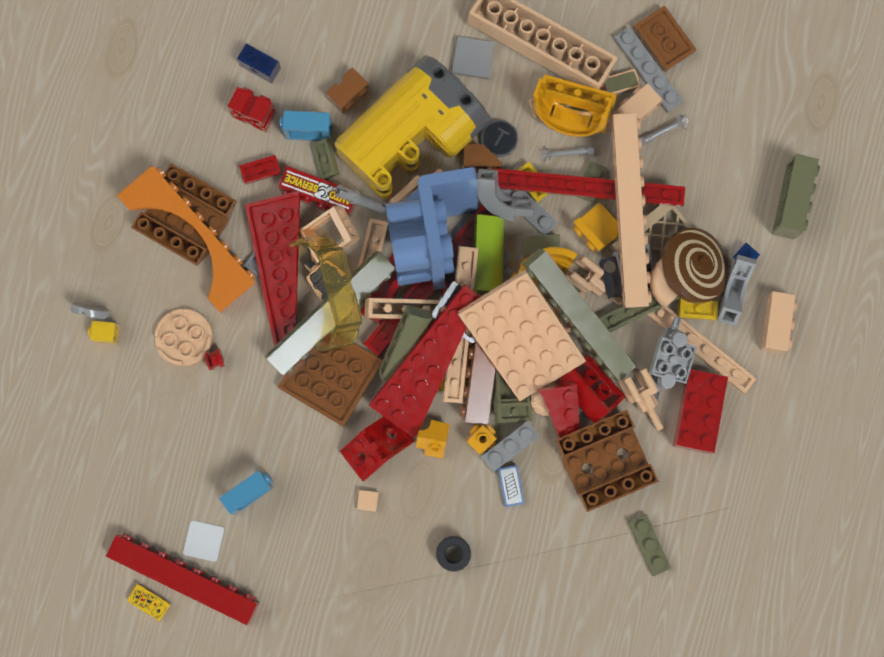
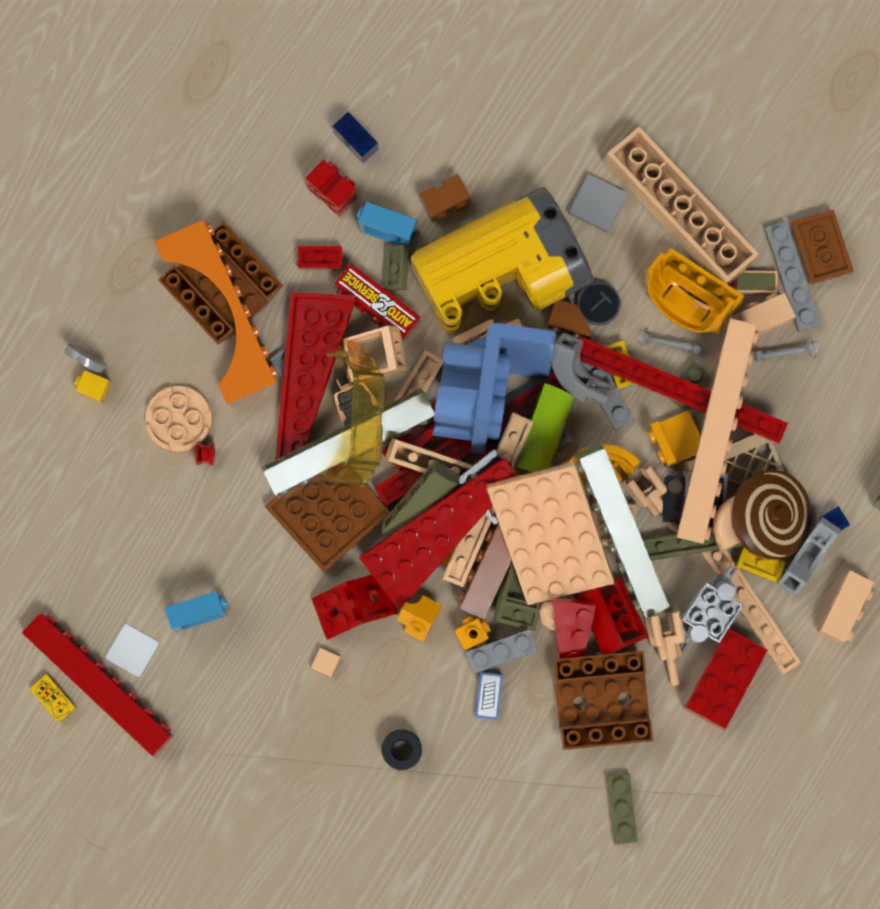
camera: 20 degrees right, 0 degrees up
(356, 197) = (415, 321): light grey pin -> none
(531, 244) = (605, 435): olive slope -> none

